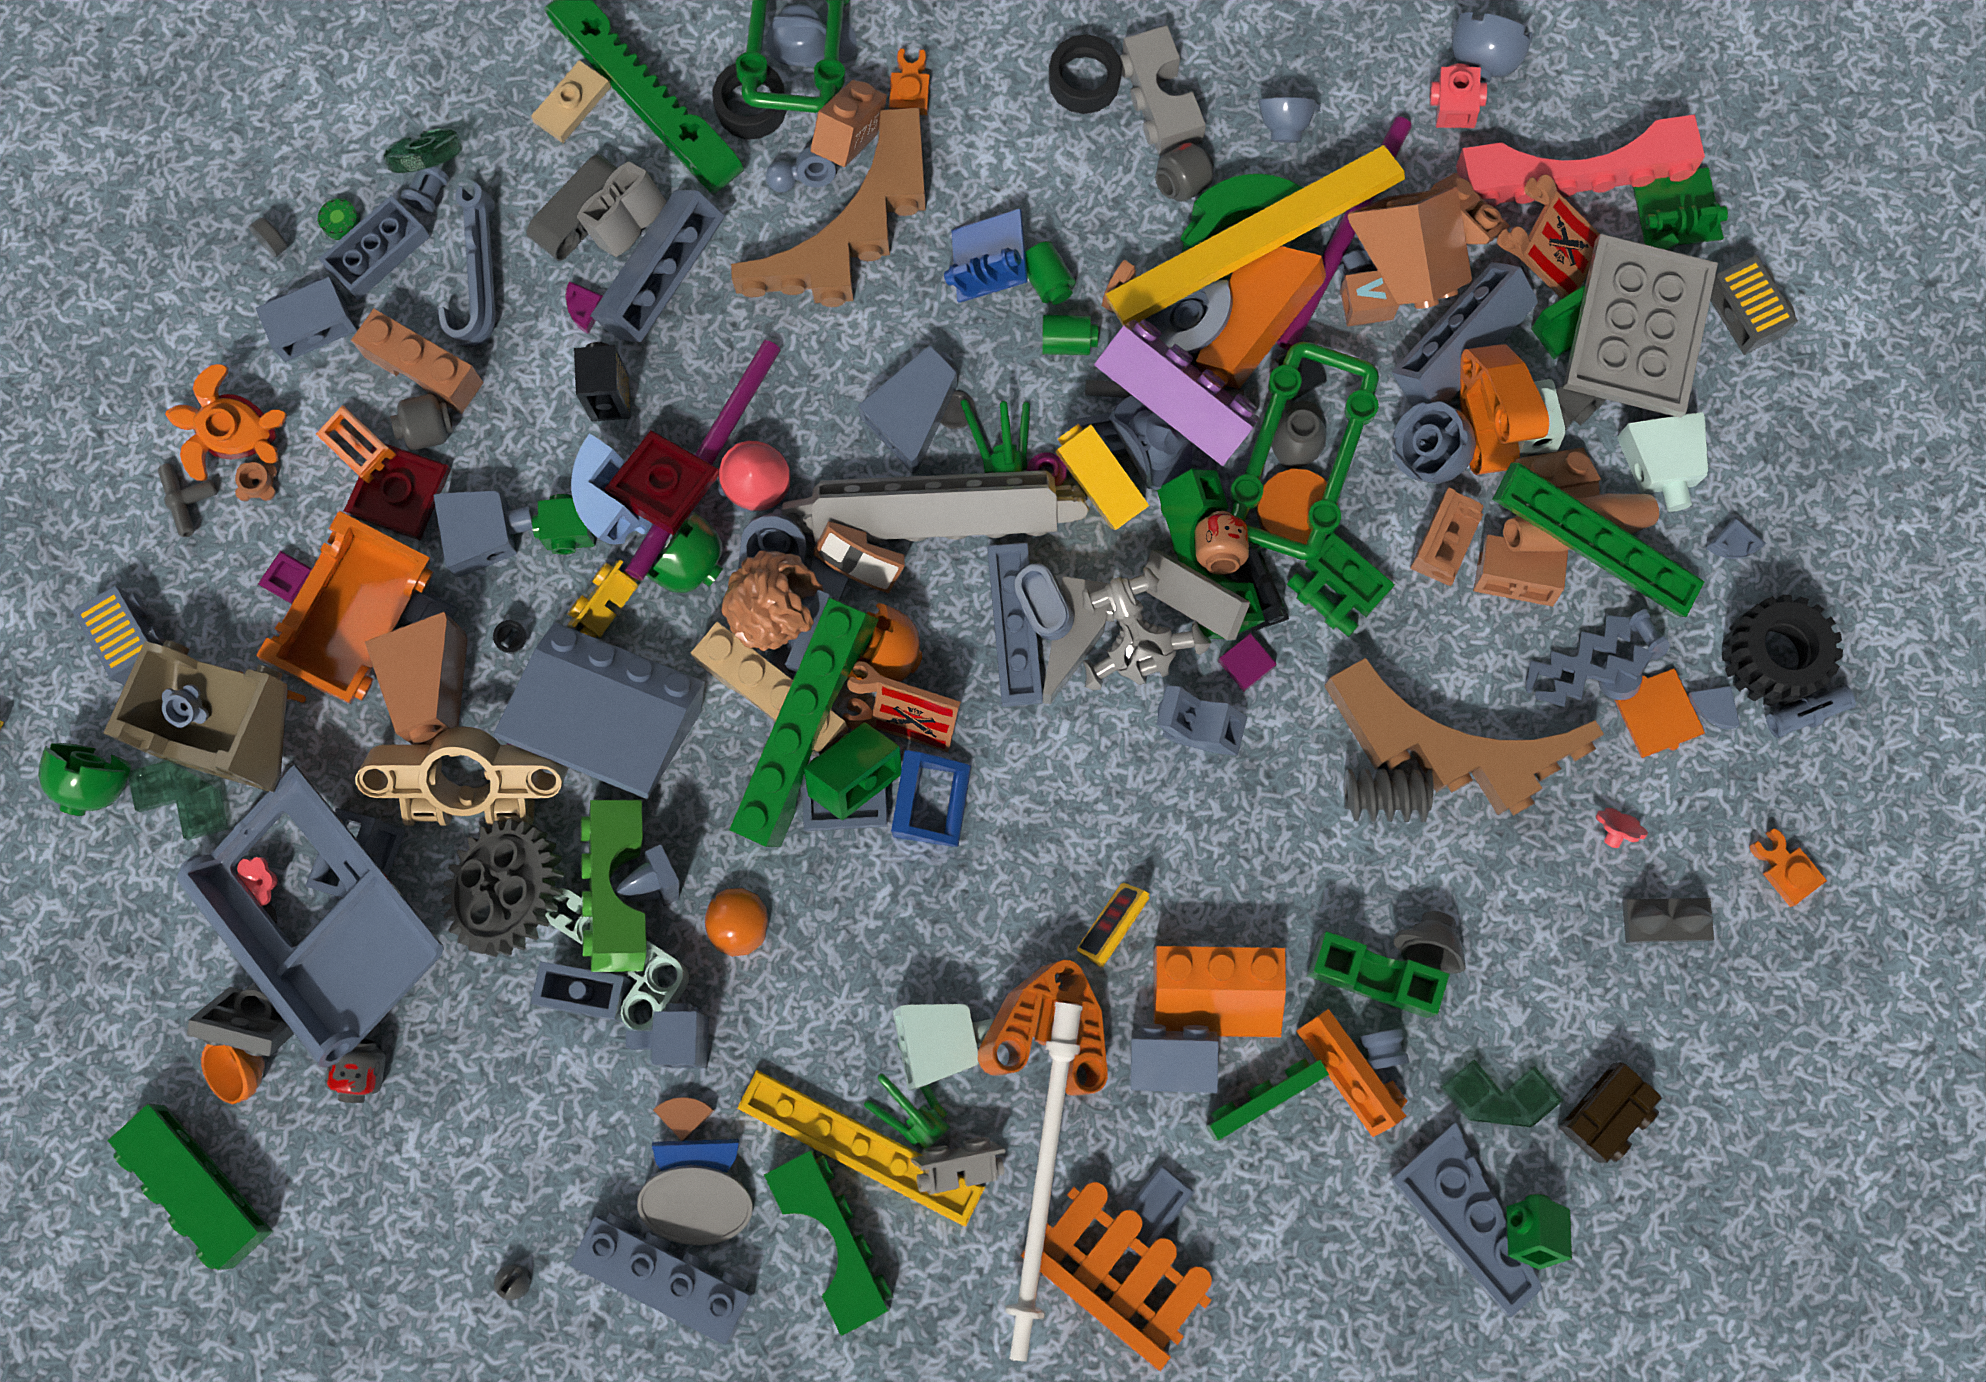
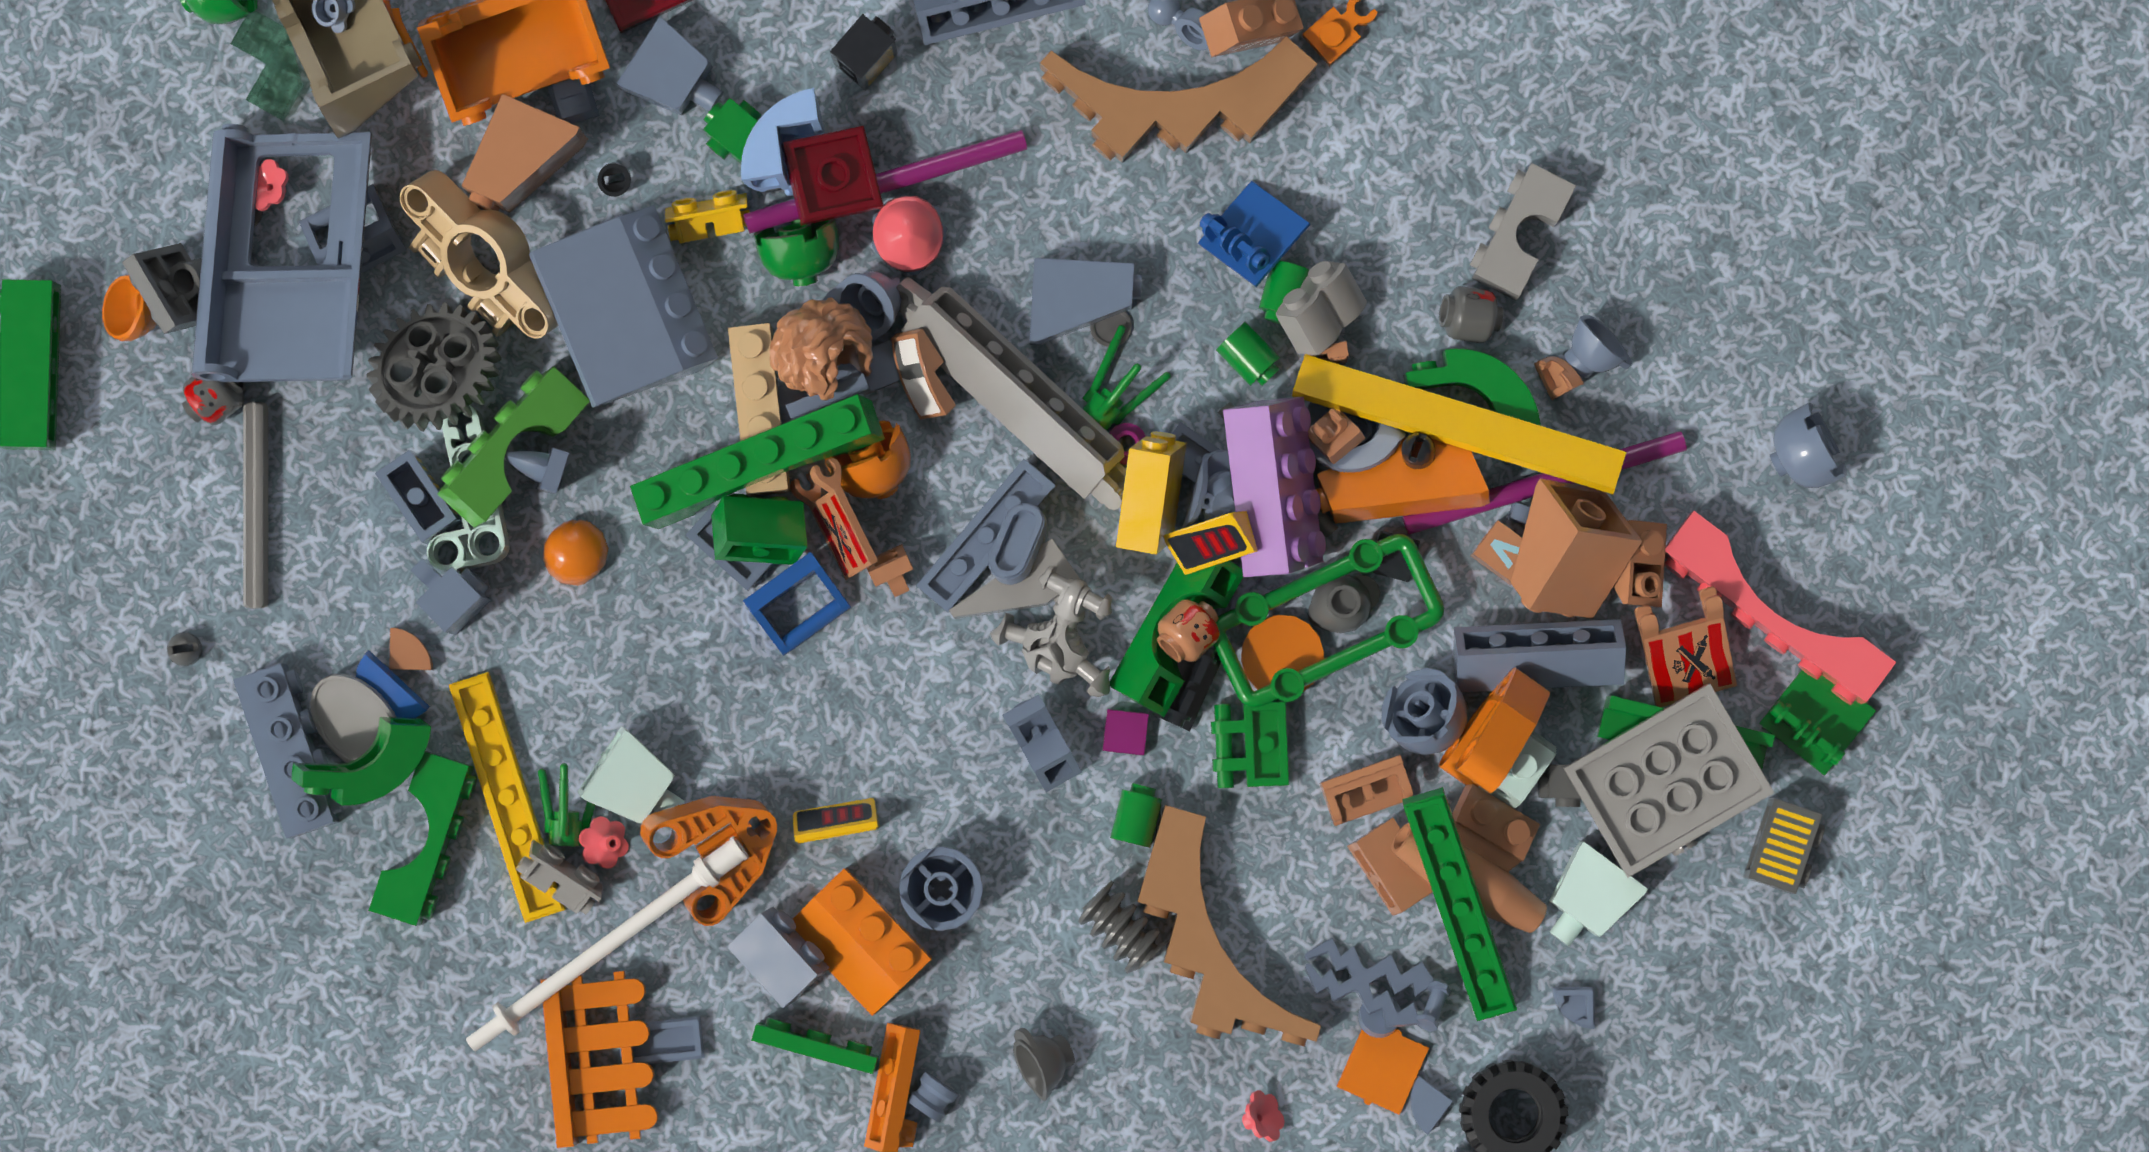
camera: 45 degrees right, 10 degrees up
(466, 1121) = (255, 505): none -> light grey axle
(746, 1224) = (377, 772): none -> green arch
(963, 1108) = (597, 839): none -> coral plant
(974, 711) = (890, 569): none -> nougat tile
(1078, 100) = (1484, 125): black tyre -> none
(1084, 254) = (1321, 307): none -> light grey brick
(1177, 462) = (1212, 542): none -> slope
(1181, 323) = (1335, 435): none -> nougat tile
(1197, 596) = (1130, 648): light grey tile -> none
(1239, 282) = (1426, 454): none -> black hinge
(1239, 890) = (940, 888): none -> sand blue cylinder
(1282, 157) = (1557, 376): none -> nougat tile
(1316, 709) = (1136, 815): none -> green brick
(1383, 979) = (978, 1042): green arch -> none
(1458, 96) = (1730, 475): coral brick -> none

